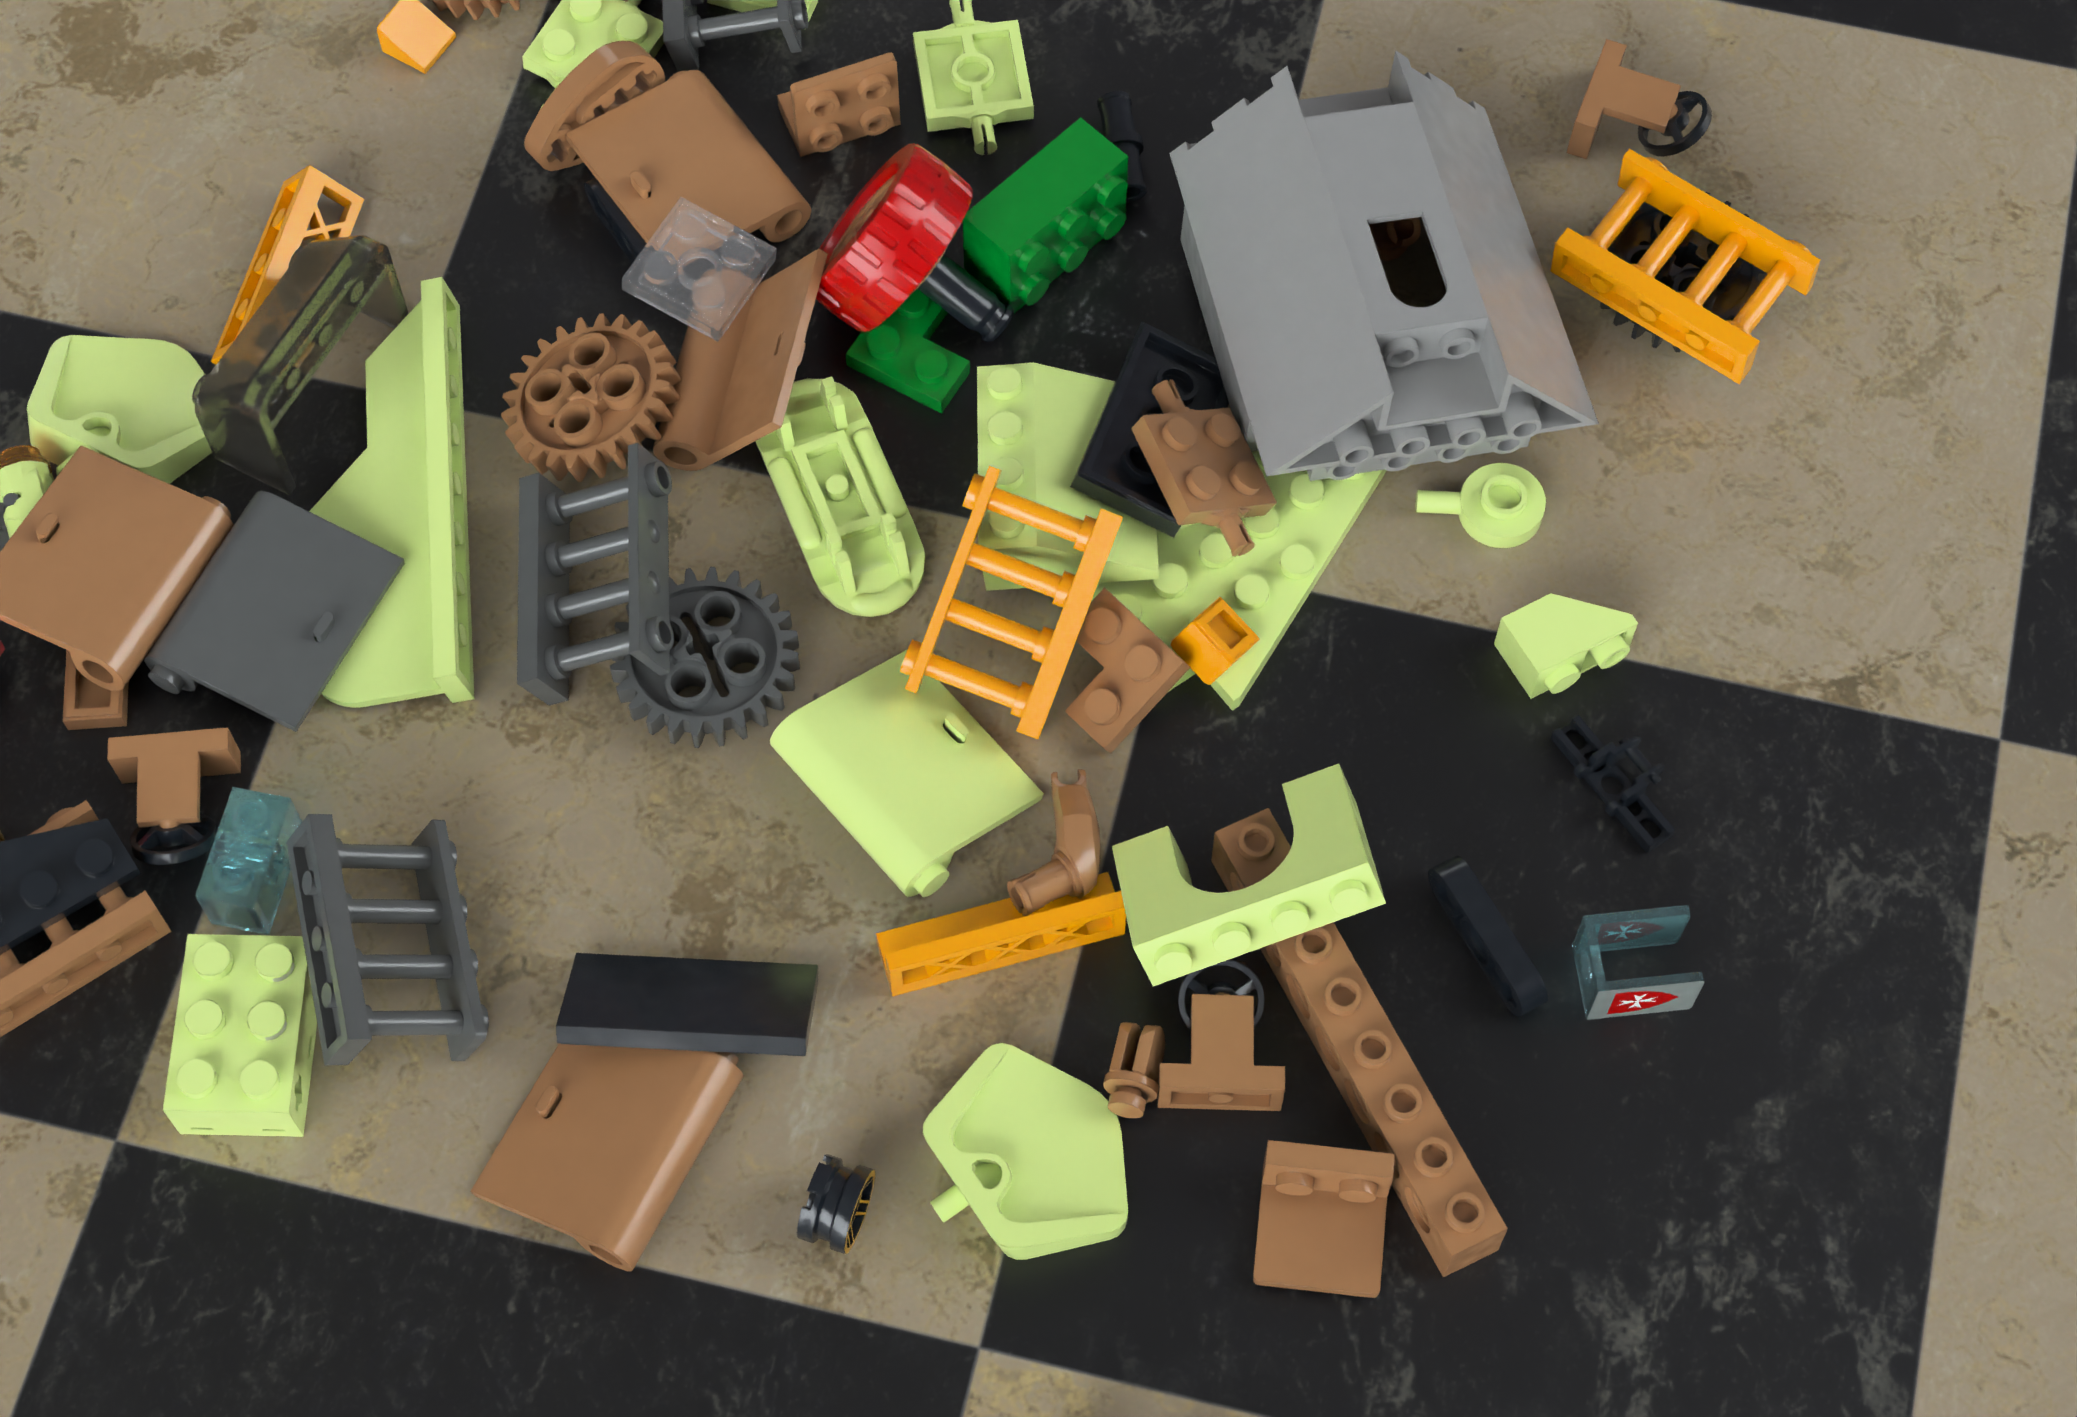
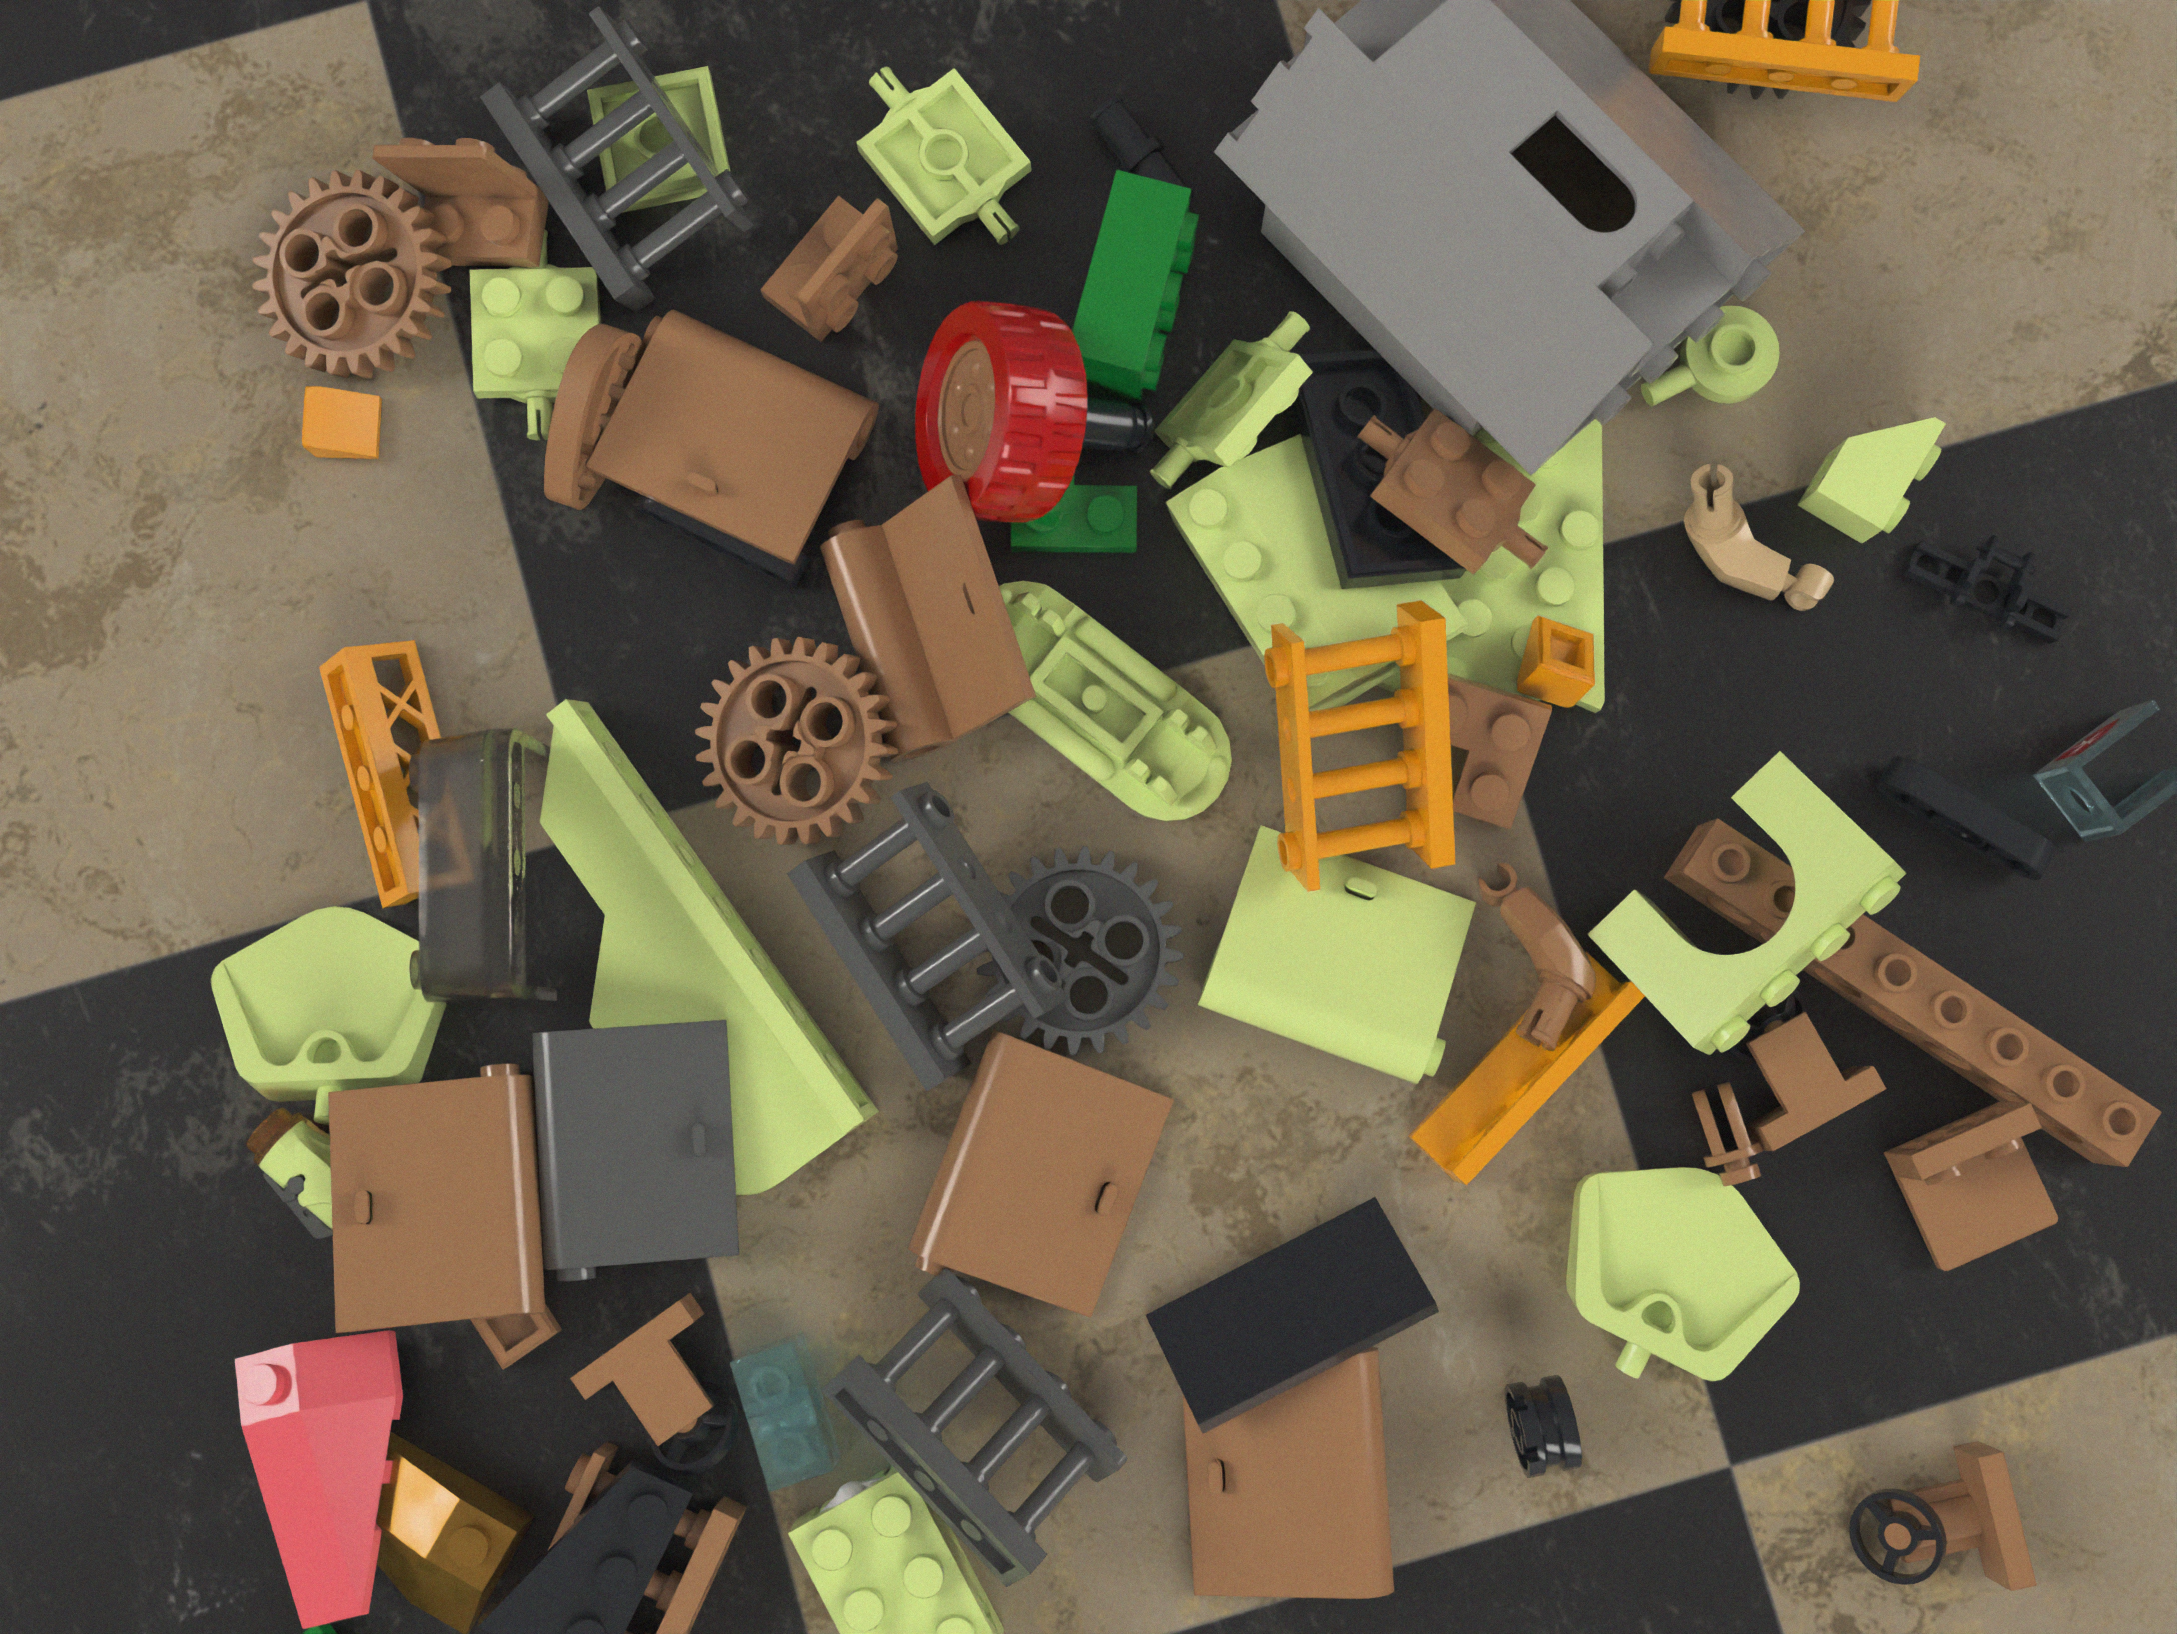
camera: 30 degrees left, 20 degrees up
(562, 788) = (1028, 1170): none -> medium nougat door
(699, 269) = (823, 547): clear plate -> none
(1097, 327) = (1233, 401): none -> yellowish green plate
(1412, 642) = (1733, 555): none -> tan arm

